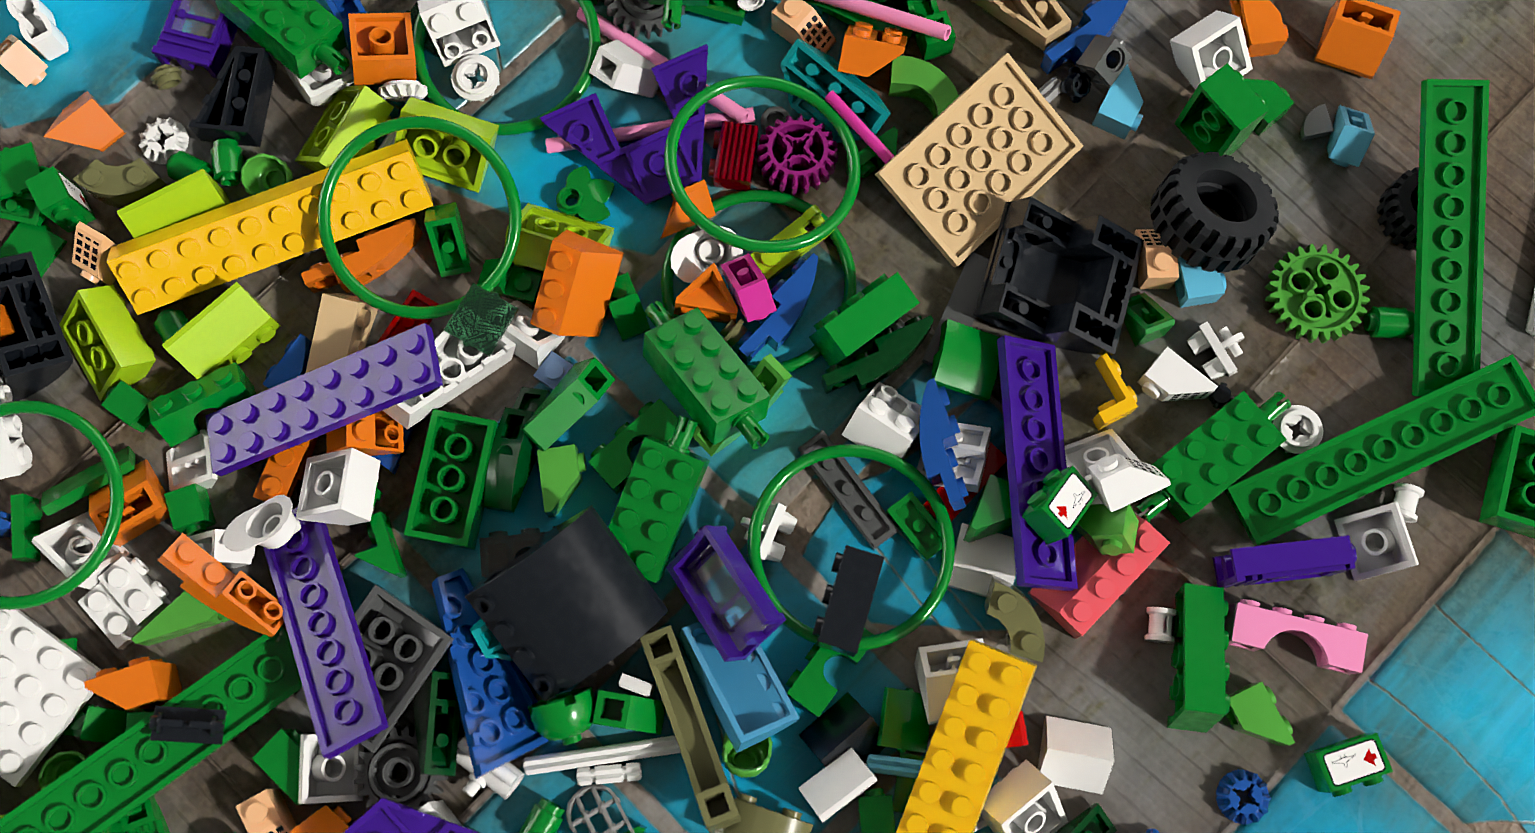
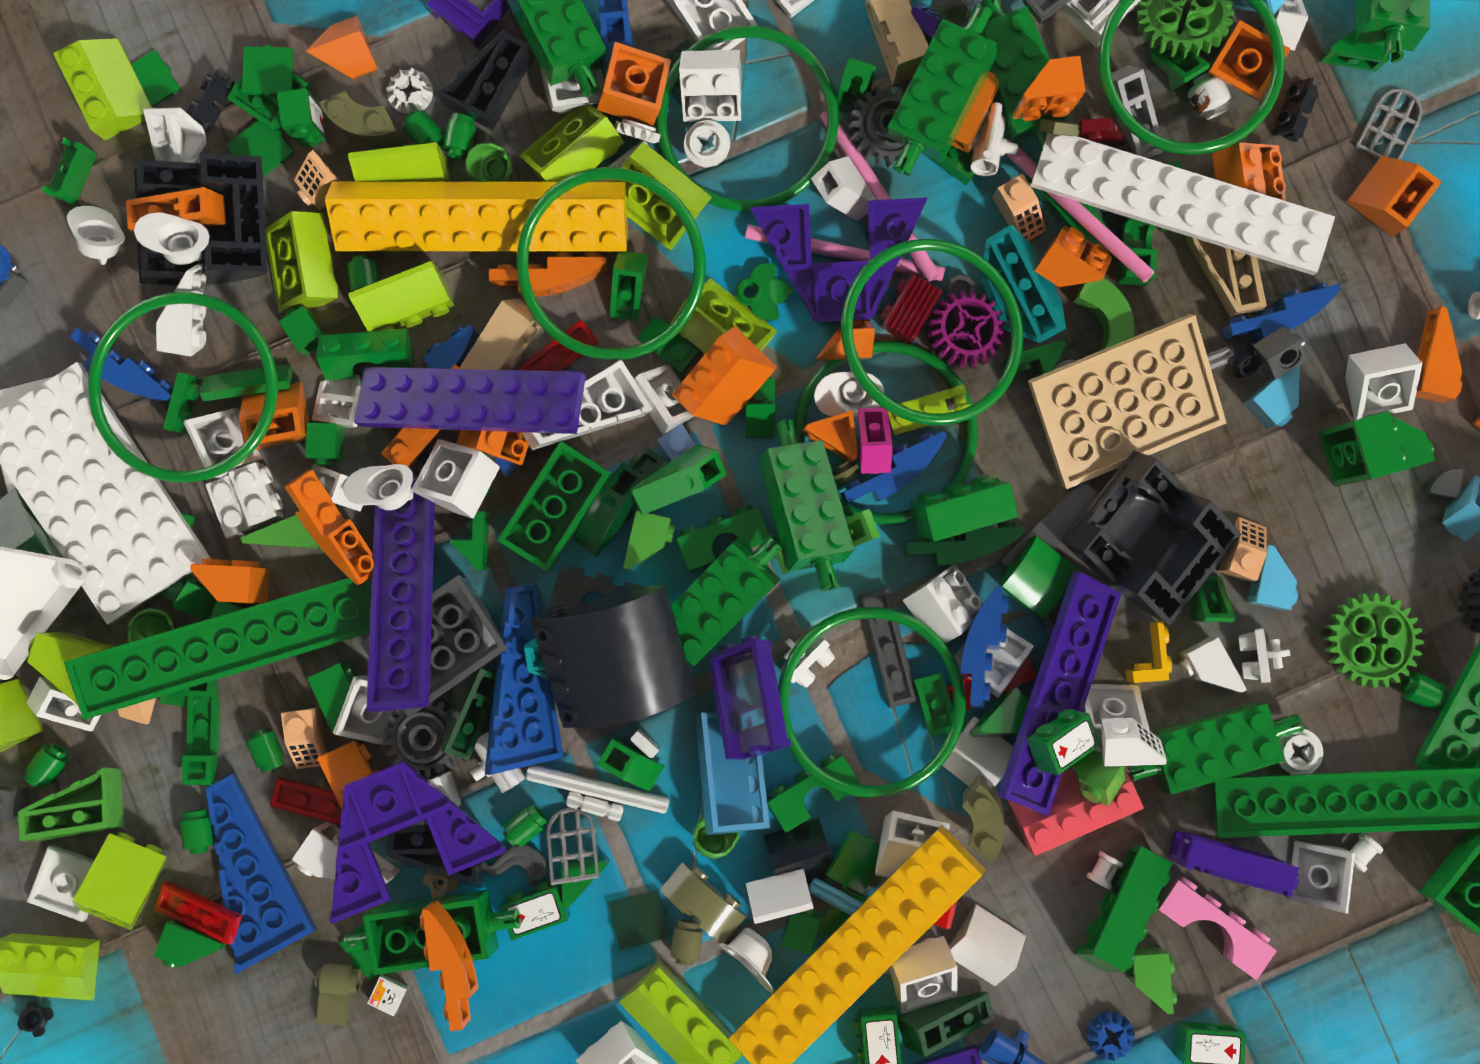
camera: 20 degrees right, 10 degrees up
(166, 77) = (432, 31): olive plate -> none
(187, 725) = (264, 633): black hinge -> none
(481, 319) = (630, 379): clear green piece -> none
(564, 715) = (576, 746): green cylinder -> none
(690, 730) = (676, 800): olive arch -> none
(848, 600) = (850, 750): black brick -> none
(859, 127) = (1032, 330): dark pink bar -> none
(1220, 396) = (1247, 696): black piece -> none
(1231, 191) = (1342, 528): black tyre -> none

